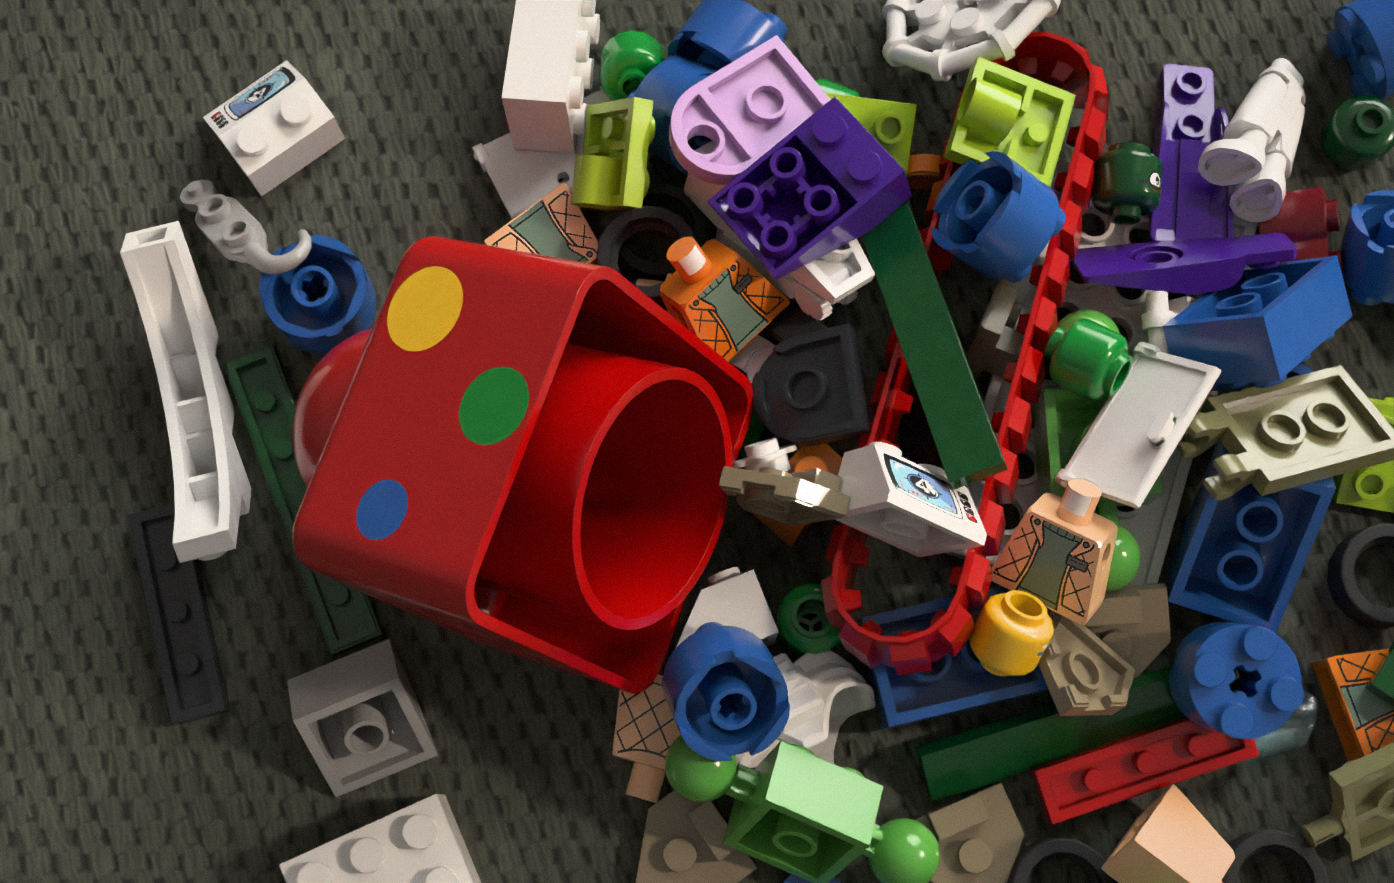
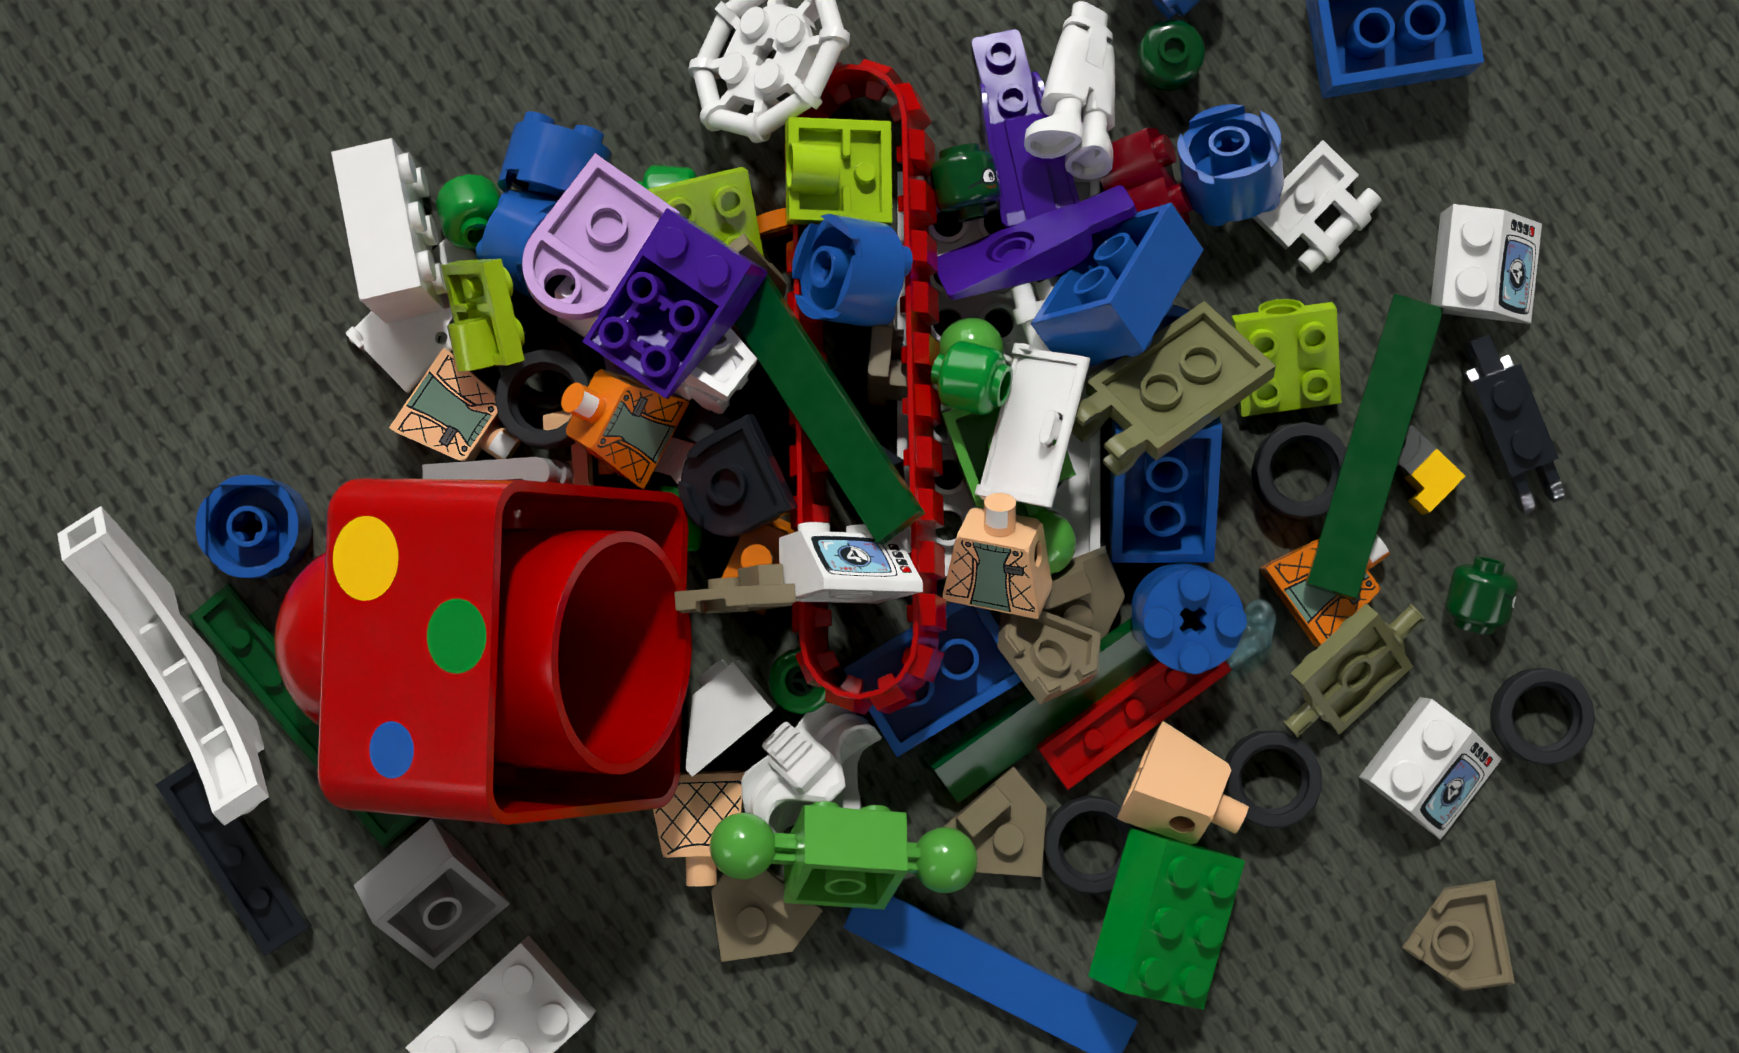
camera: 15 degrees left, 10 degrees up
(237, 232) = (156, 493): light grey piece -> none
(275, 127) = (150, 375): white slope -> none
(725, 692) = (741, 781): blue brick -> none
(766, 454) = (712, 559): white plate -> none
(1011, 633) = (976, 646): yellow head -> none

